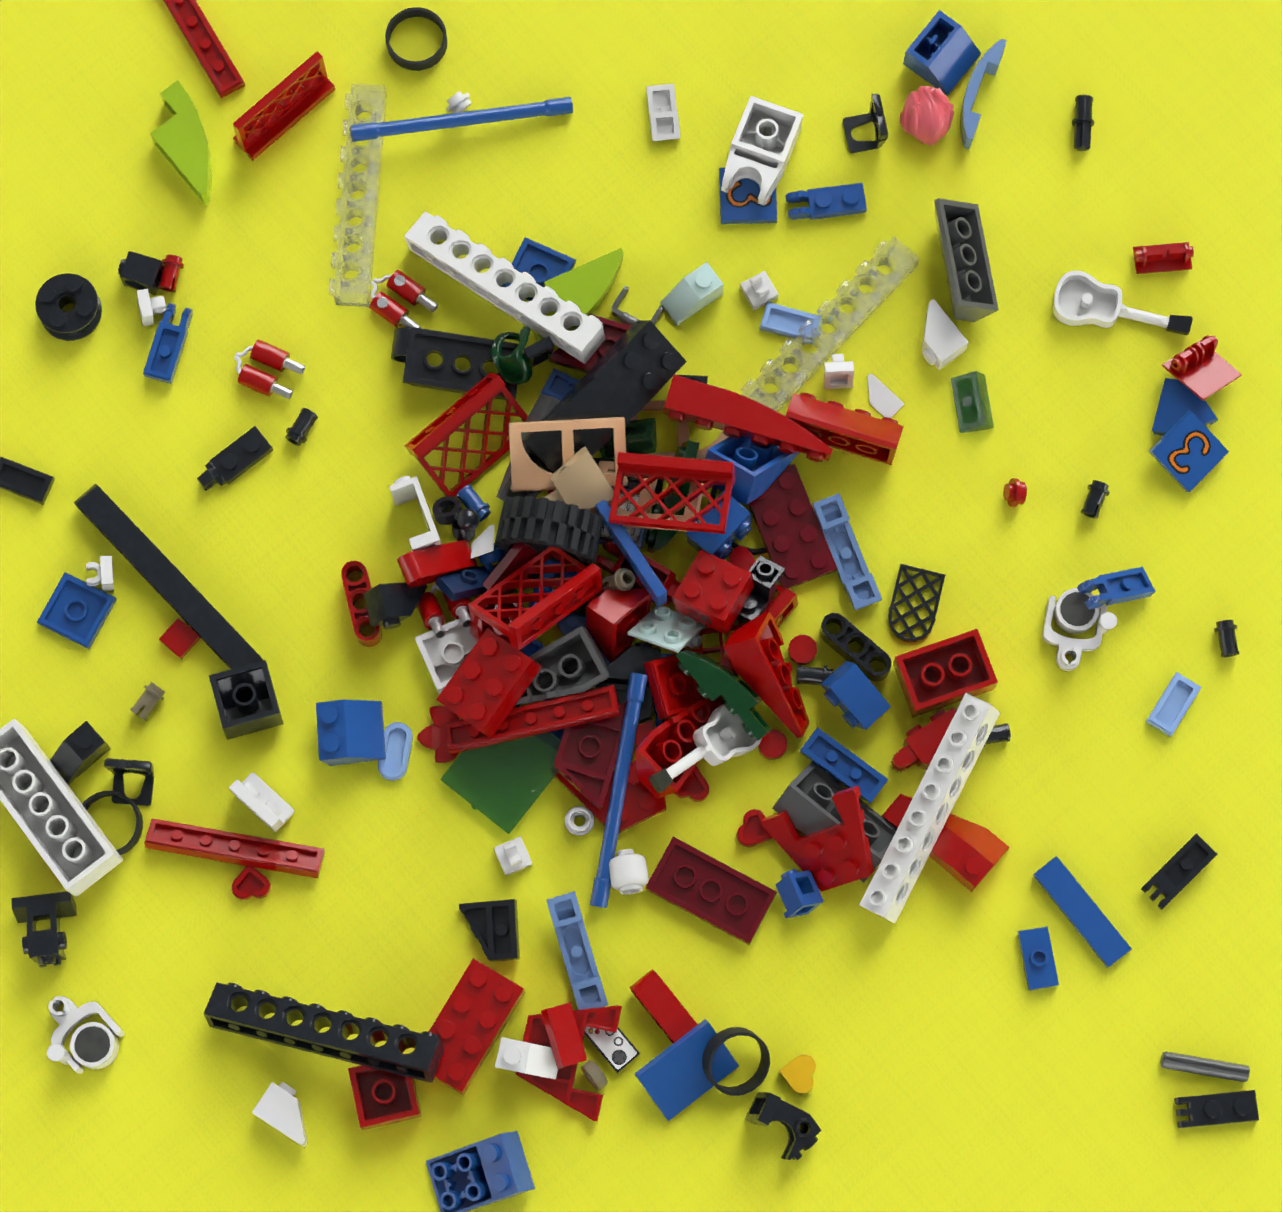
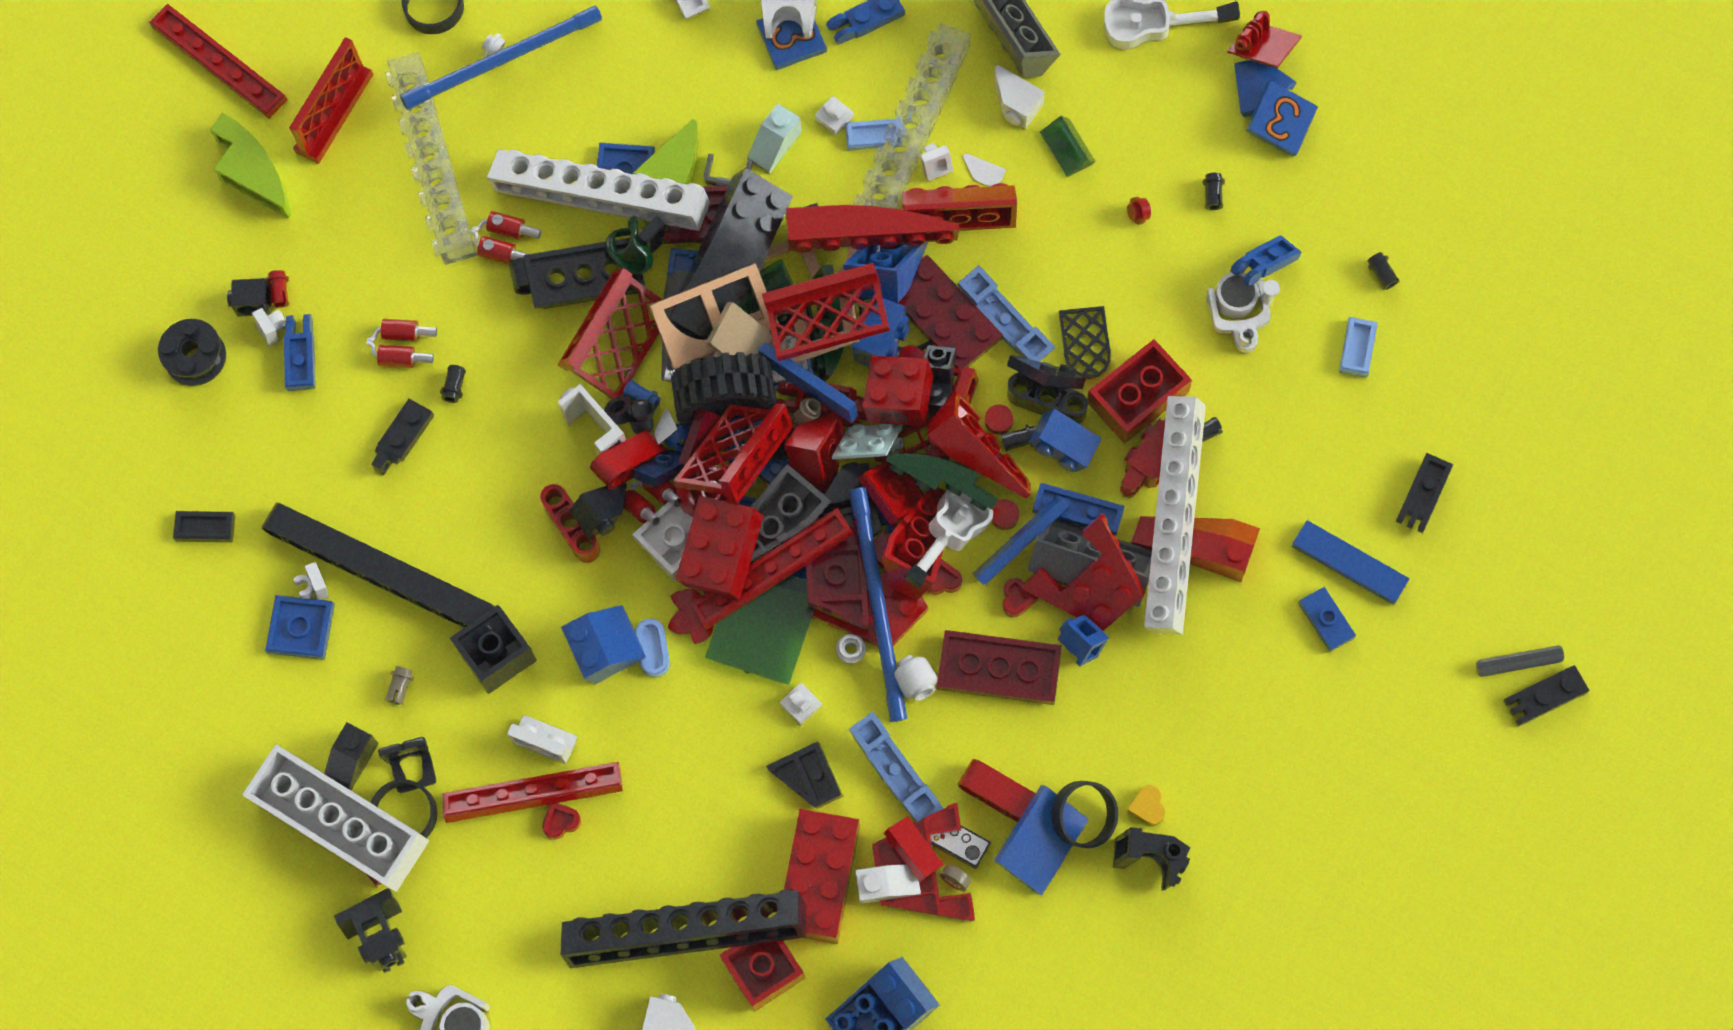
camera: 15 degrees left, 5 degrees down
(179, 638) = (408, 617): red tile -> none
(776, 776) = (1021, 539): none -> blue tile
(862, 624) = (1046, 373): none -> black wing

